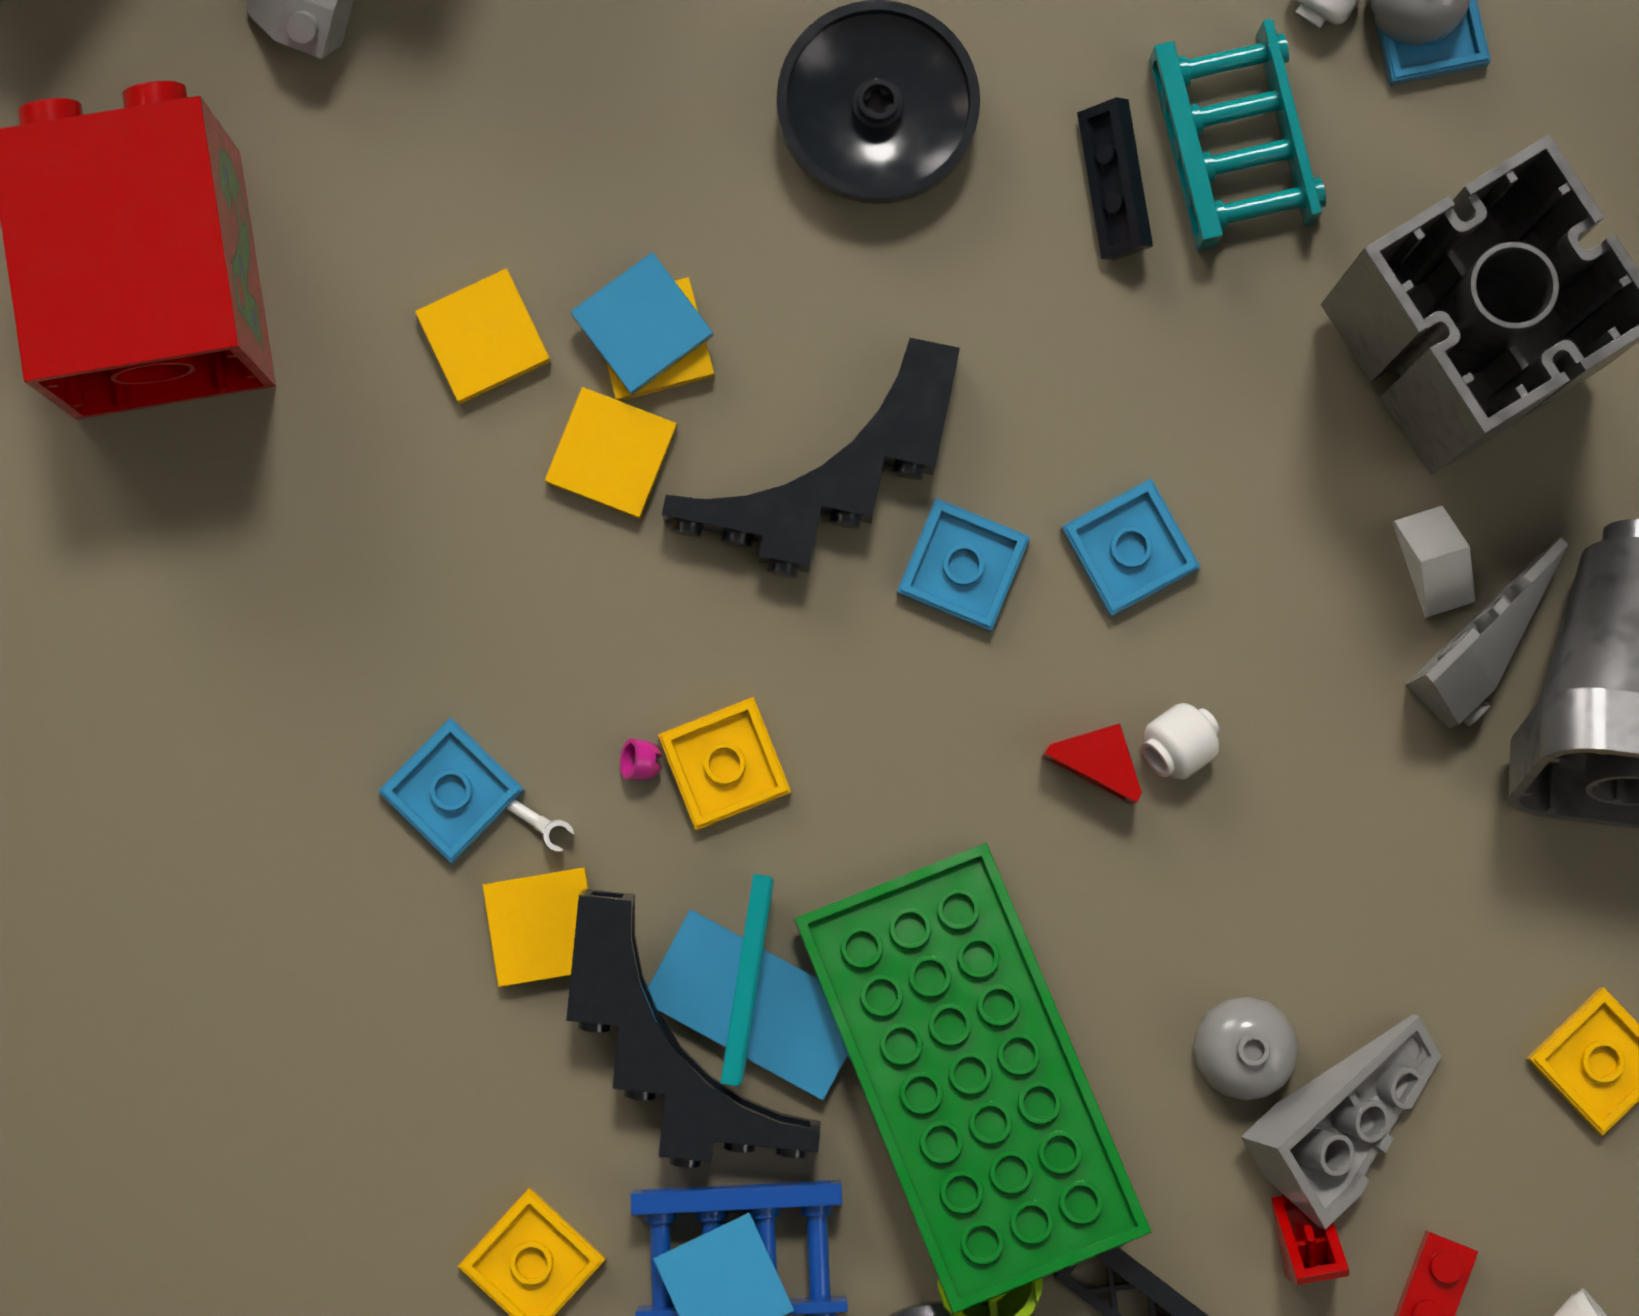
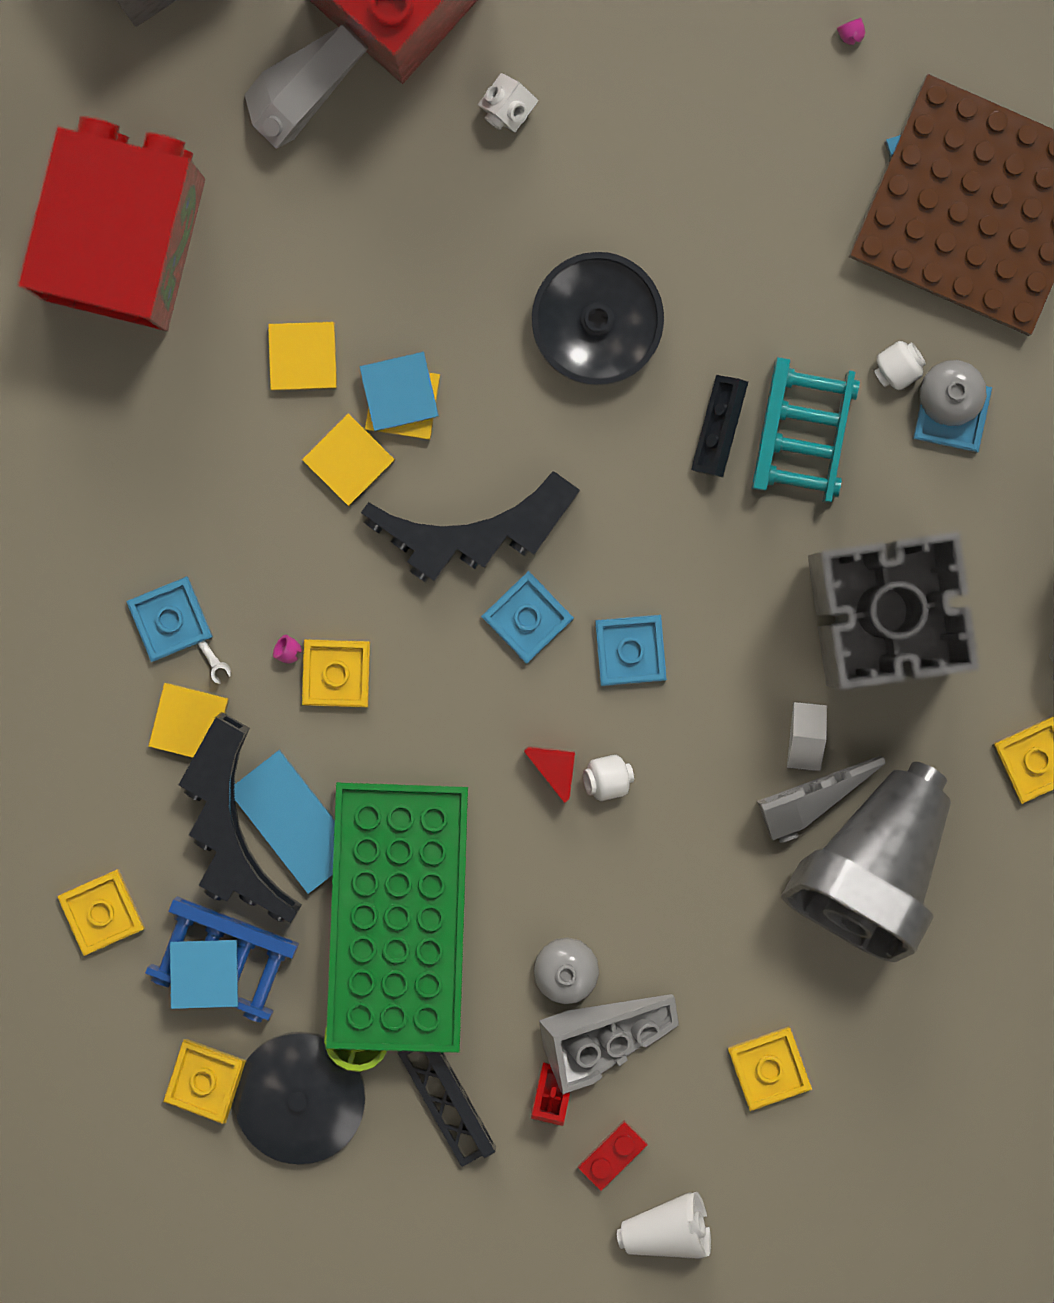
camera: 20 degrees right, 5 degrees up
(747, 980) = (293, 806): teal tile -> none

